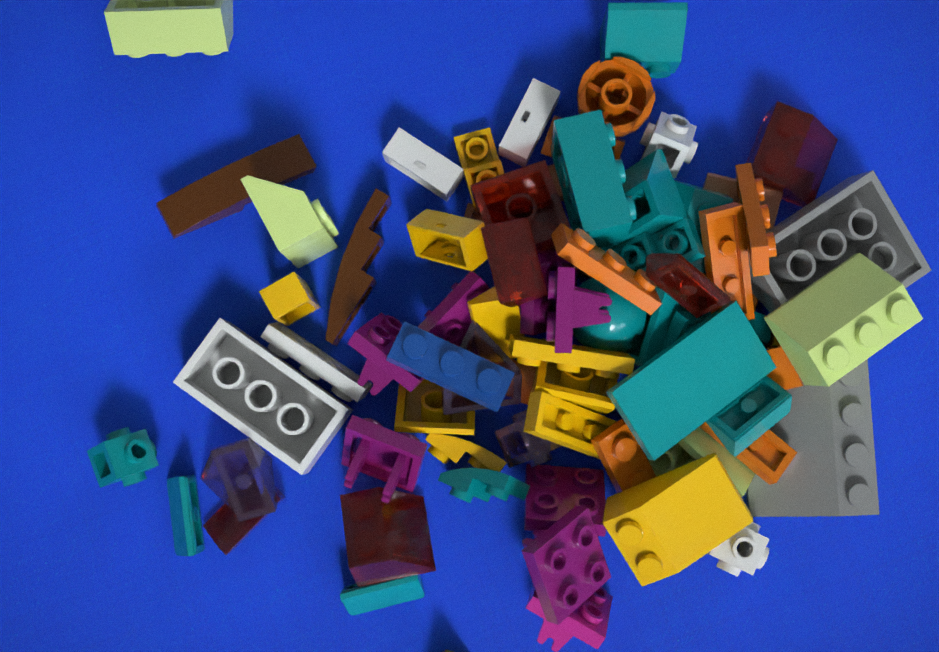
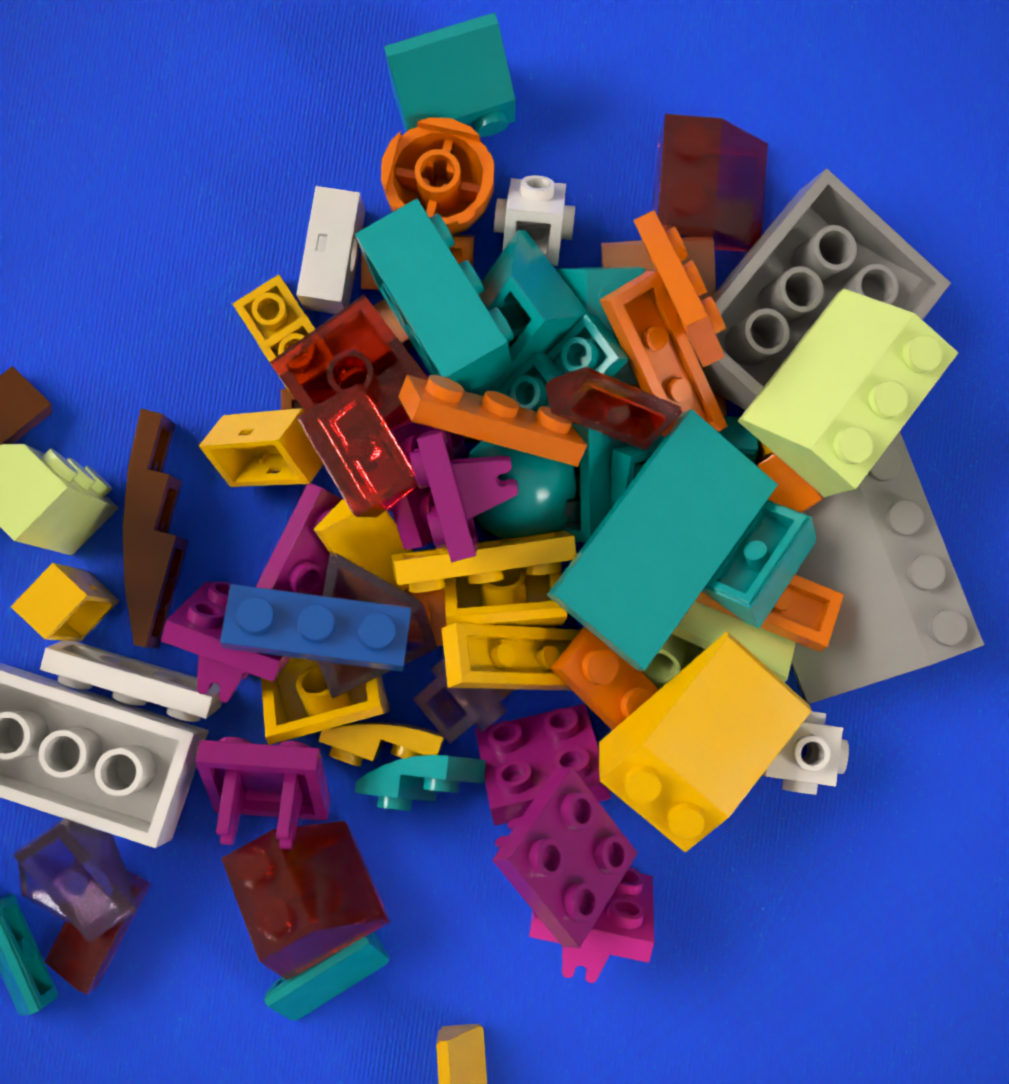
camera: 20 degrees left, 0 degrees up
(423, 164) = (200, 354): white piece -> none

